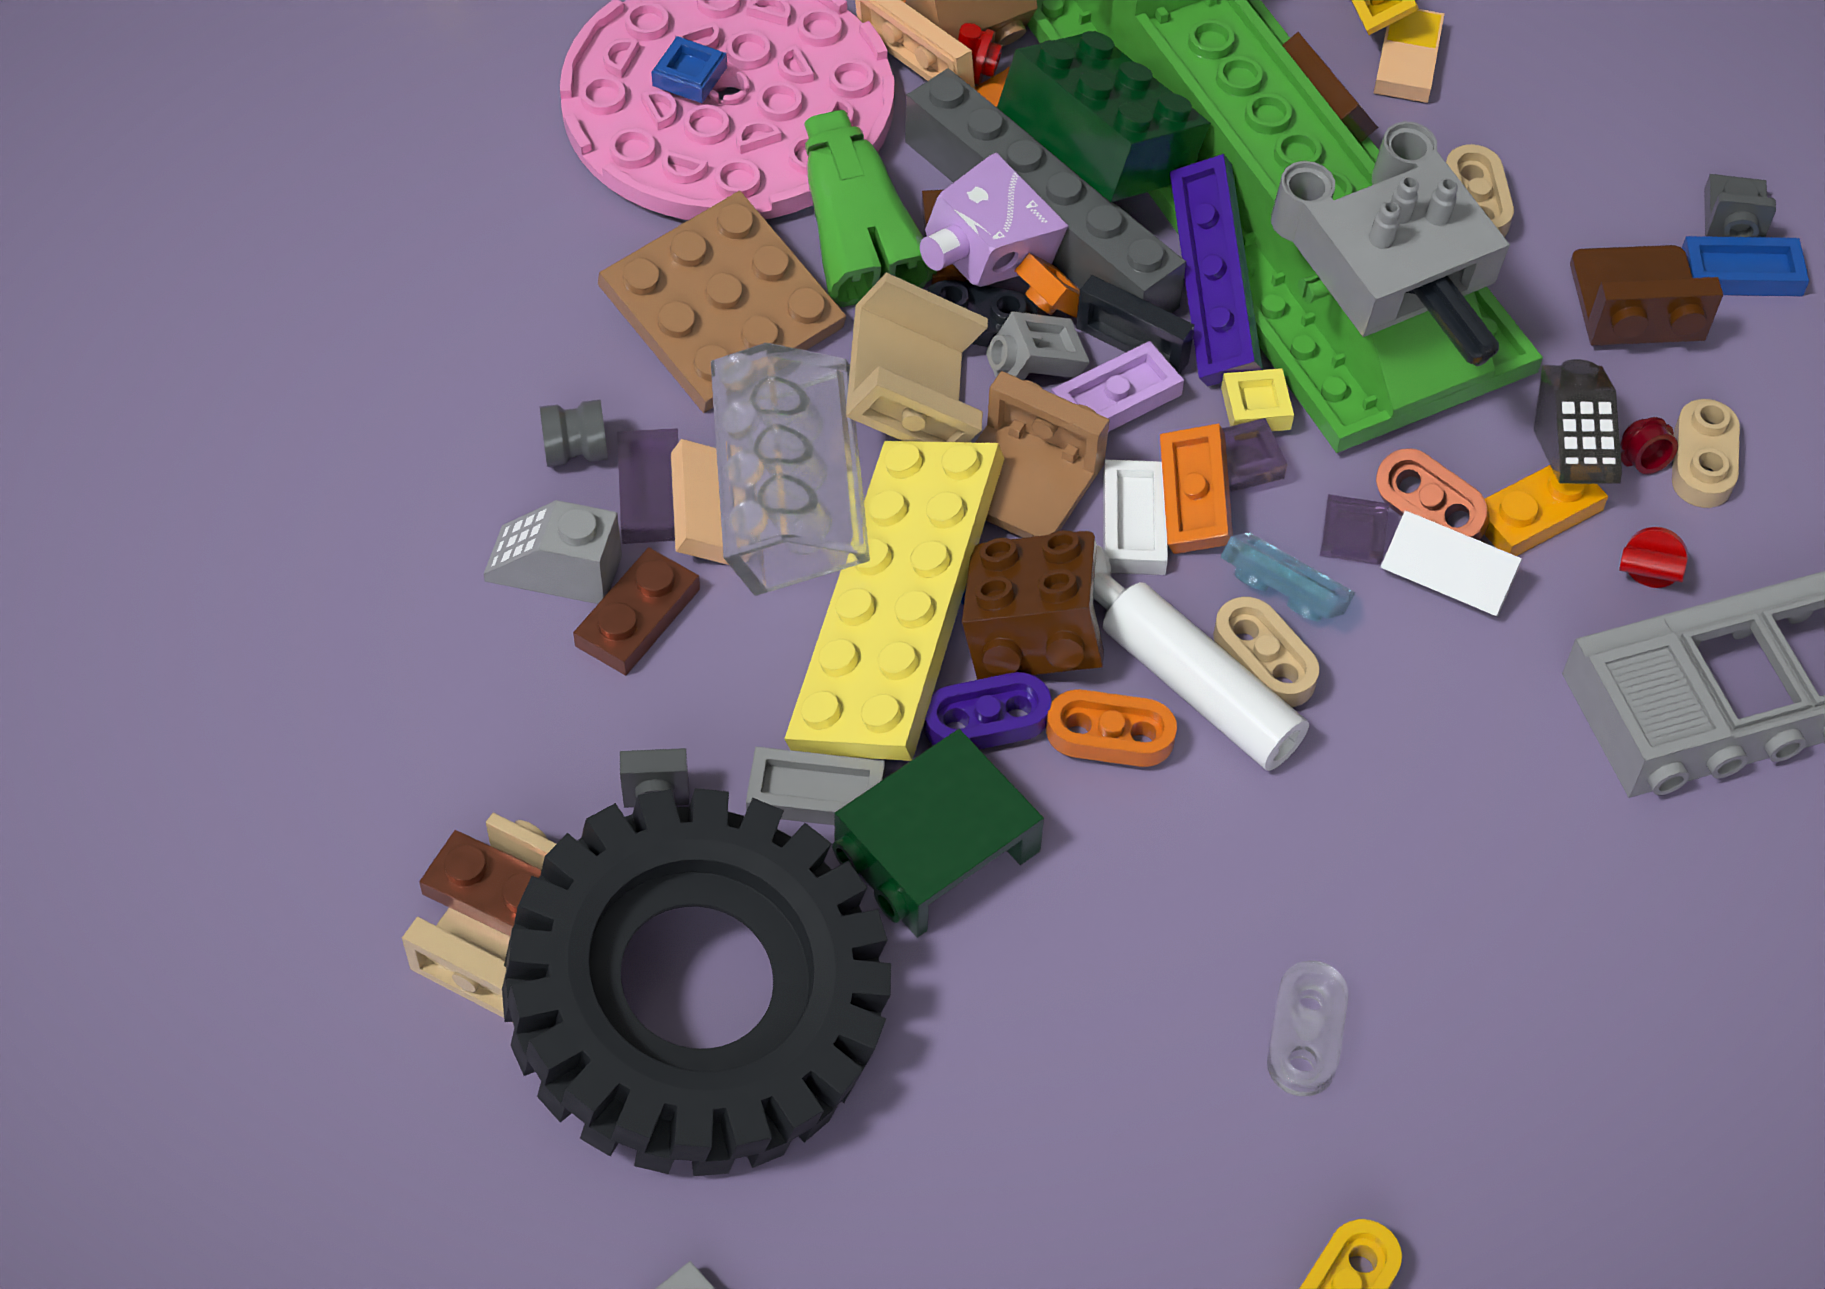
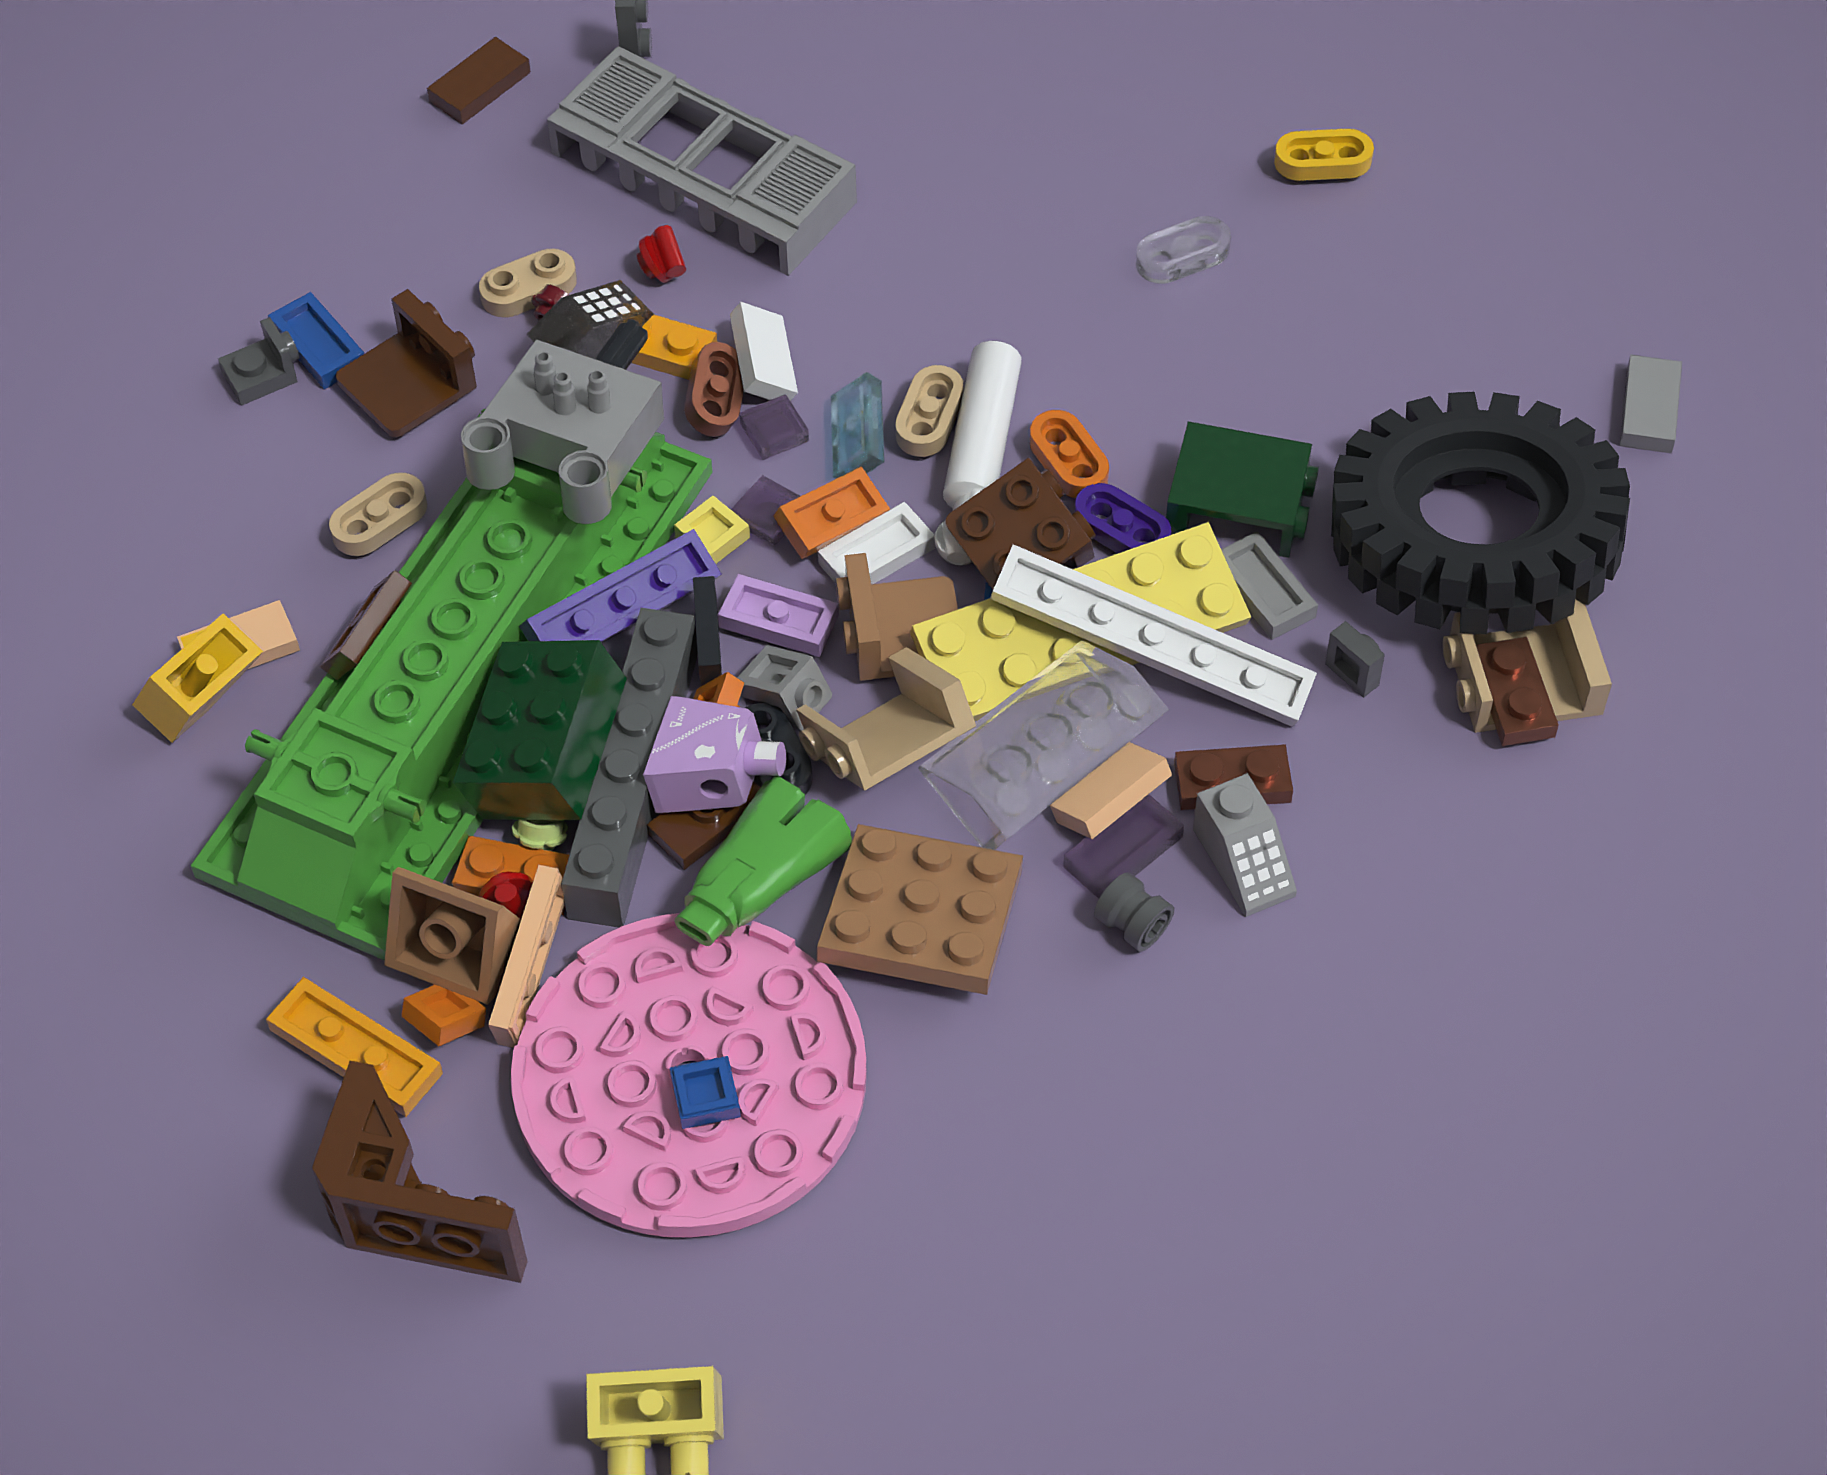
camera: 125 degrees left, 0 degrees up
(816, 609) = (1153, 635): none -> white plate

